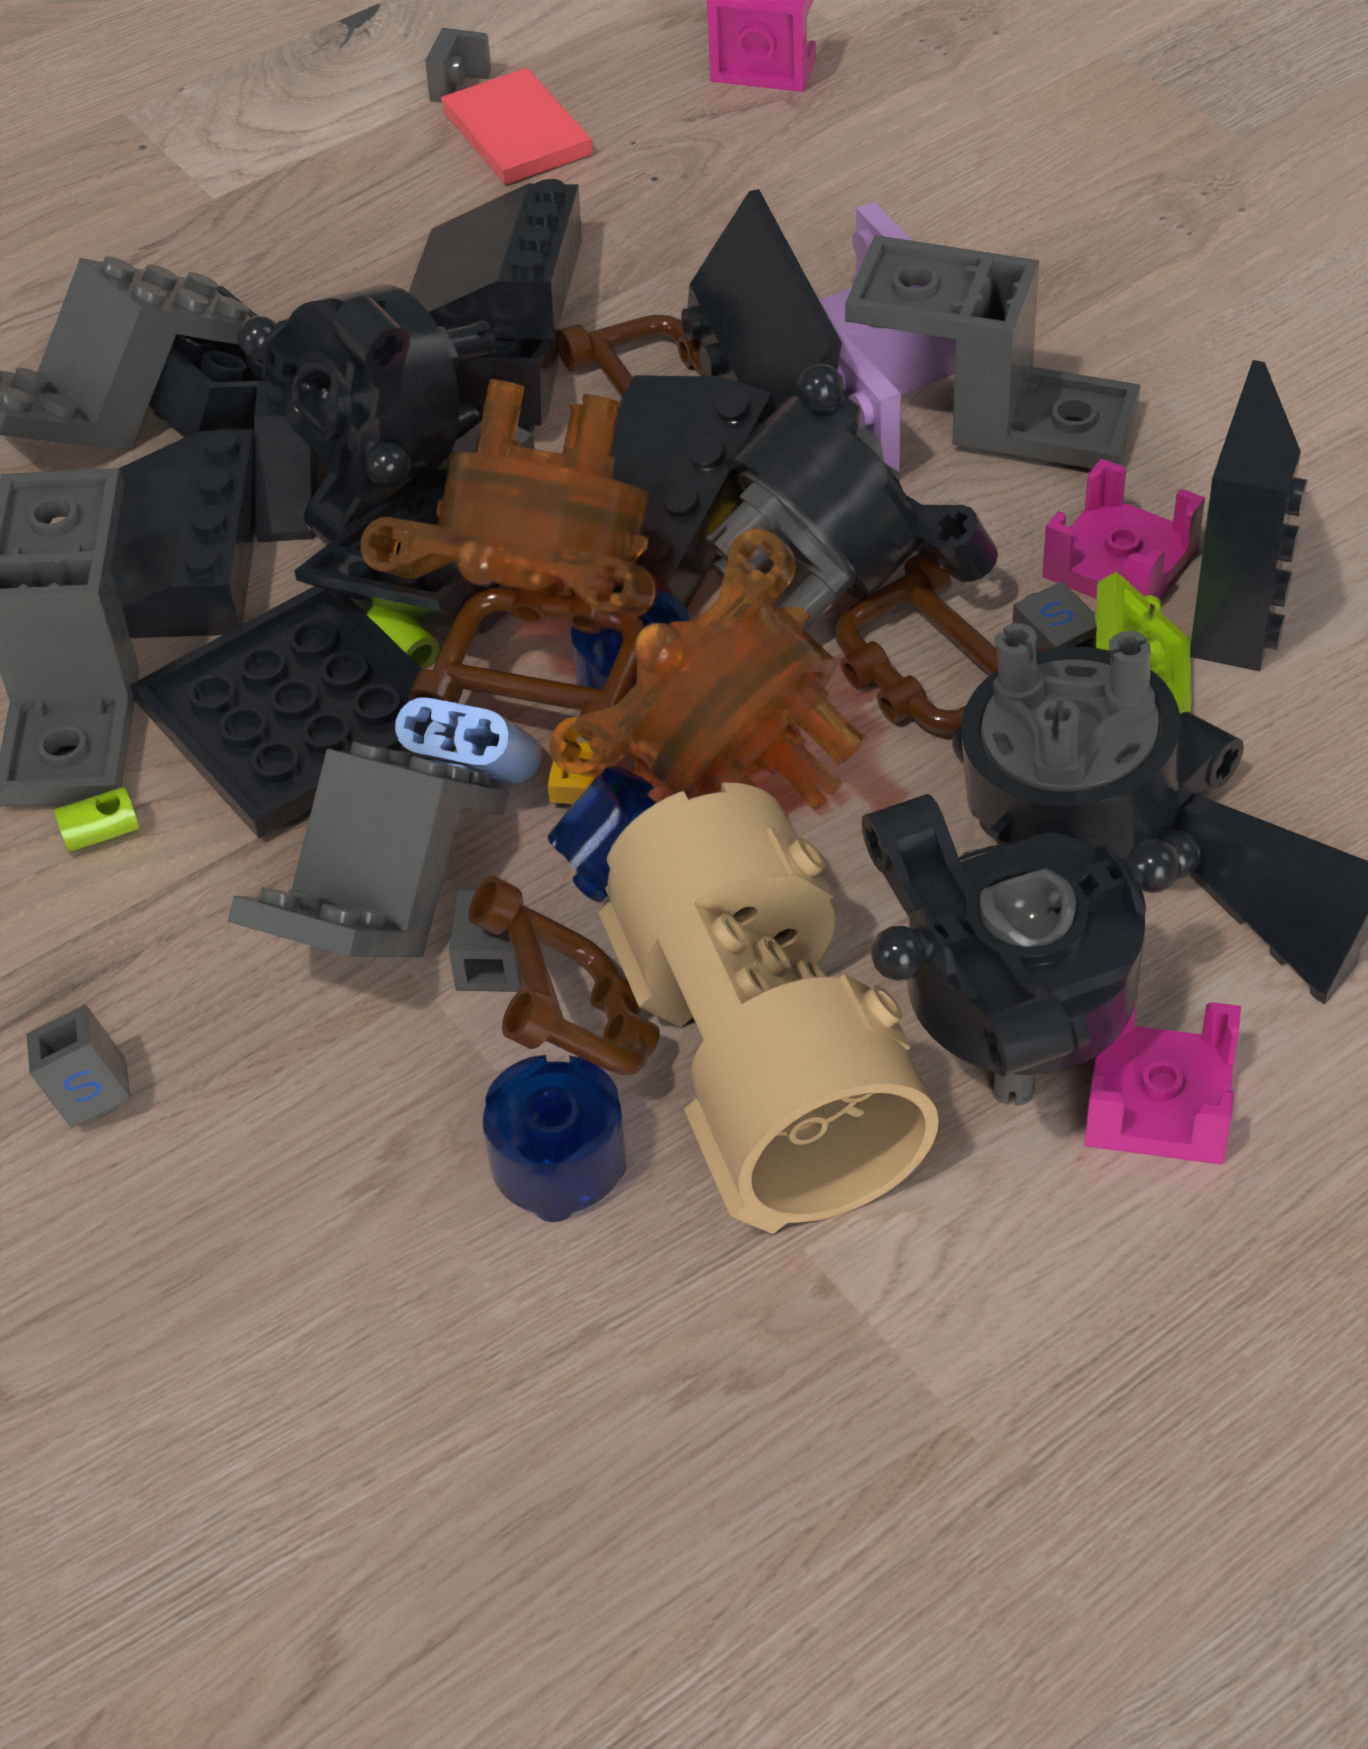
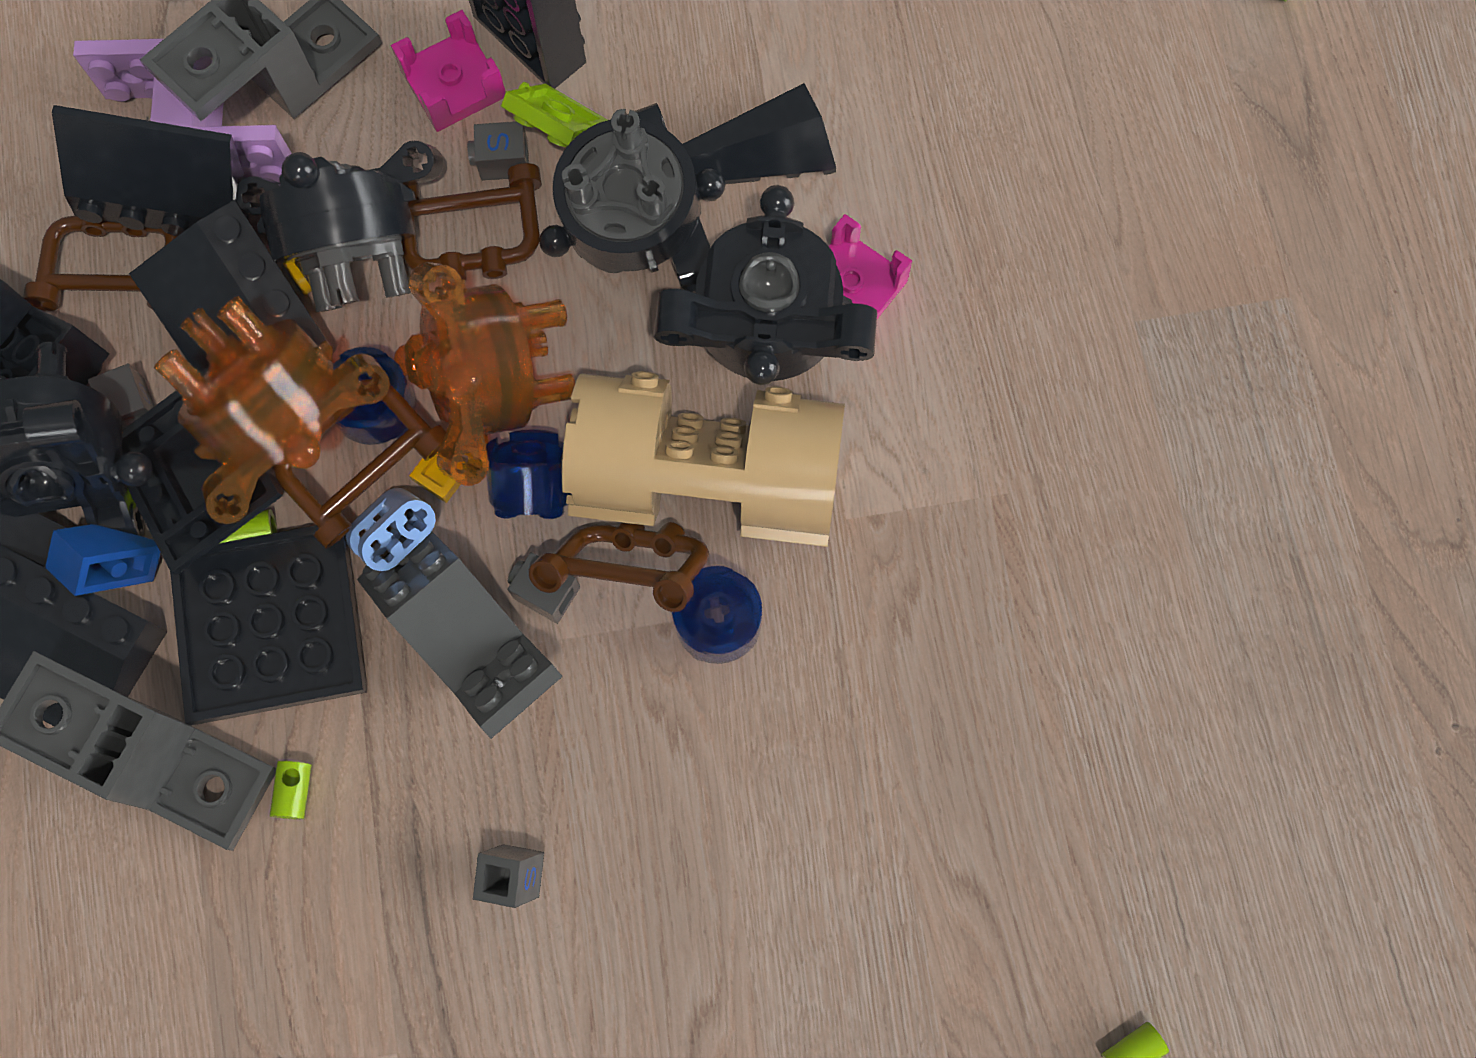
camera: 65 degrees left, 25 degrees up
(281, 515) = (100, 558): none -> blue slope

